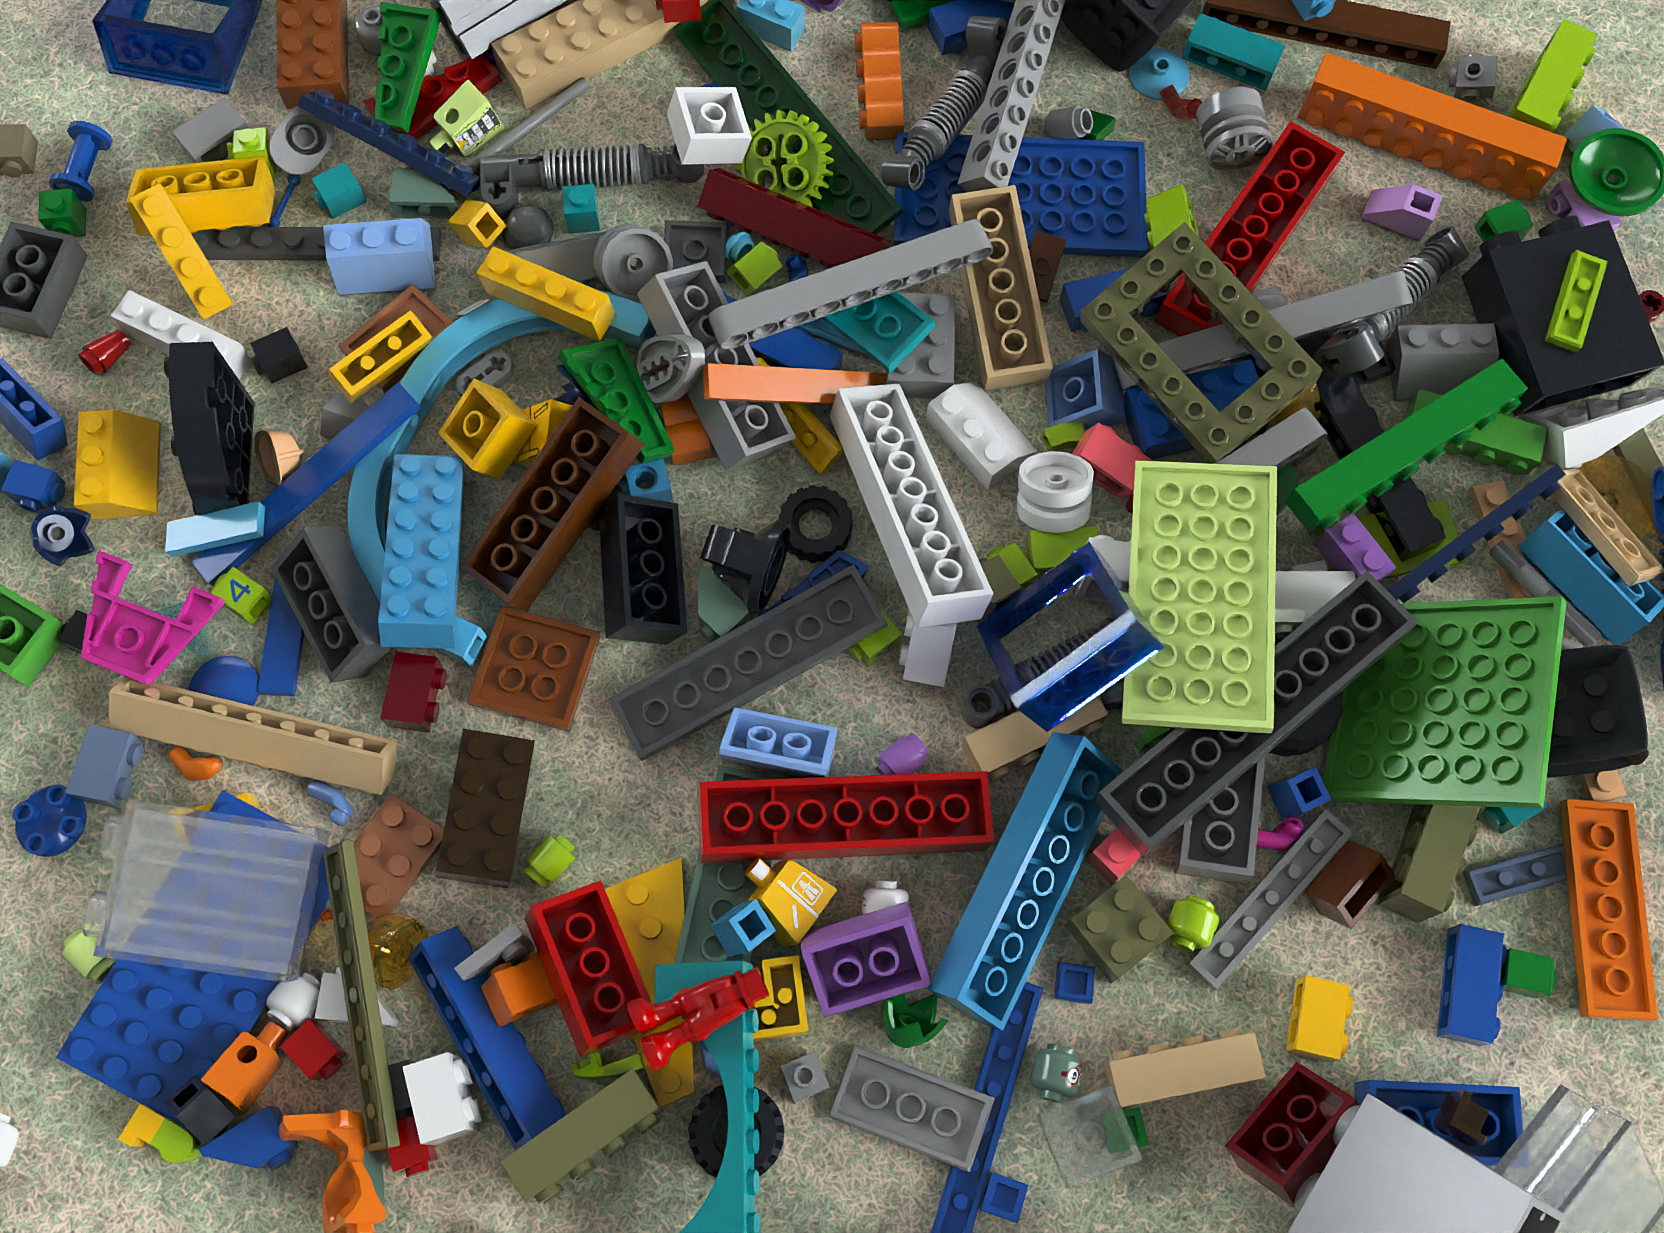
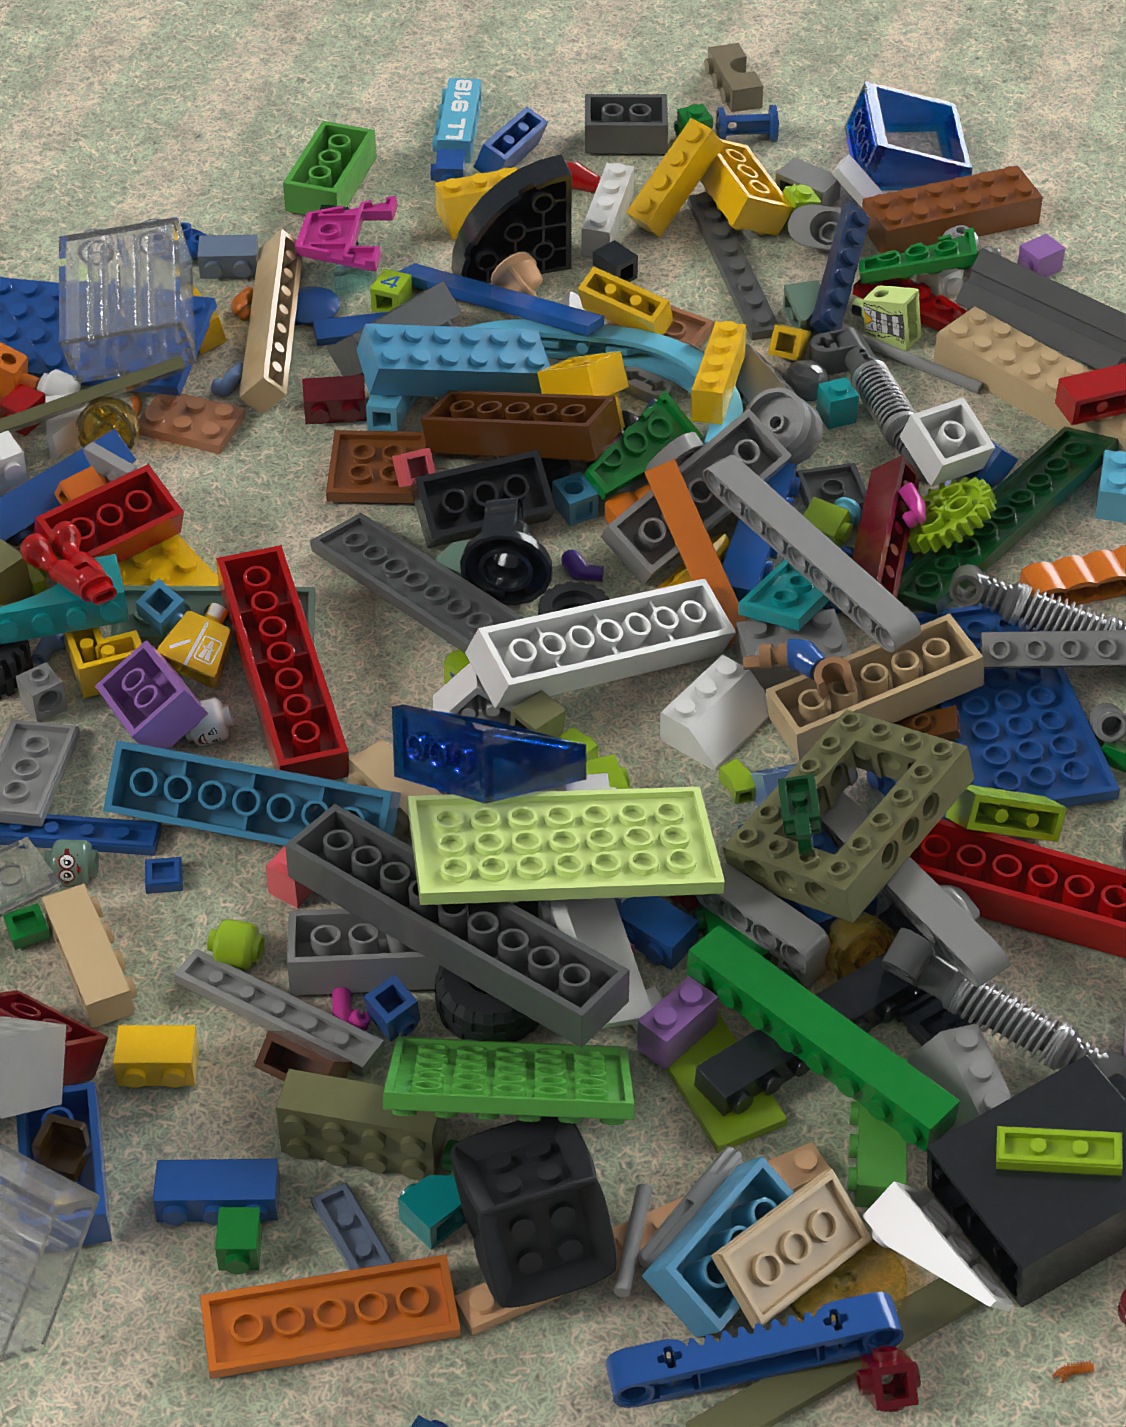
camera: 80 degrees right, 25 degrees down
(72, 537) = (403, 177): dark blue piece -> none
(215, 529) = (443, 263): medium azure tile -> none
(237, 86) = (855, 180): none -> white tile
(293, 180) = (744, 240): blue hinge -> none
(337, 190) = (788, 262): teal brick -> none
(380, 256) = (729, 289): light blue slope -> none
(485, 808) = (239, 454): dark brown brick -> none
(550, 860) = (206, 507): lime brick -> none
(582, 626) = (413, 465): none -> coral brick
(743, 506) = (579, 569): none -> dark purple arm
(777, 180) = (916, 504): none -> dark pink arm
(778, 744) = (338, 614): light blue slope -> none
(903, 756) = (356, 711): medium lavender brick -> none
(911, 1023) = (98, 746): green piece -> none
(975, 331) = (806, 659): none -> medium nougat piece
(1055, 491) = (660, 756): white wheel -> none
(1110, 459) = (724, 797): coral brick -> none
(1118, 929) = (218, 886): olive brick -> none
(1222, 378) = (800, 810): none -> dark green hinge
(1487, 527) = (735, 1116): dark blue plate -> none

